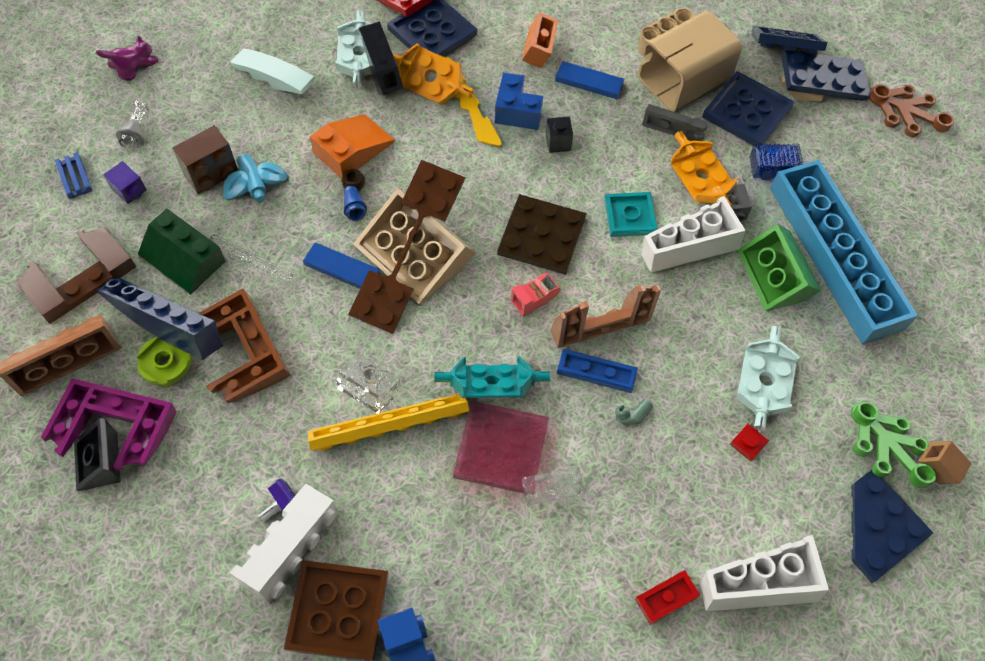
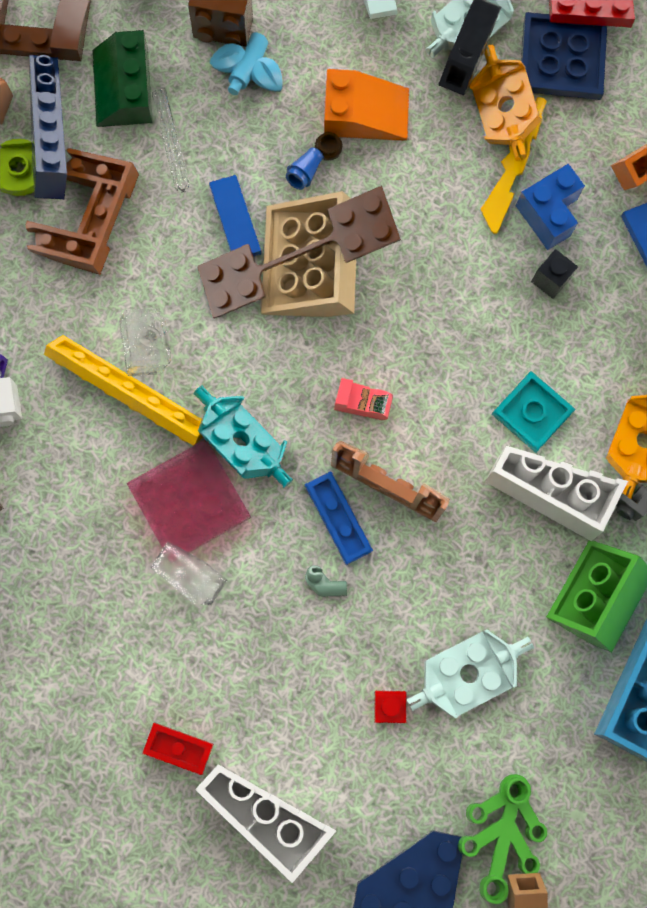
camera: 45 degrees right, 15 degrees up
(542, 234) = (433, 352): dark brown plate -> none

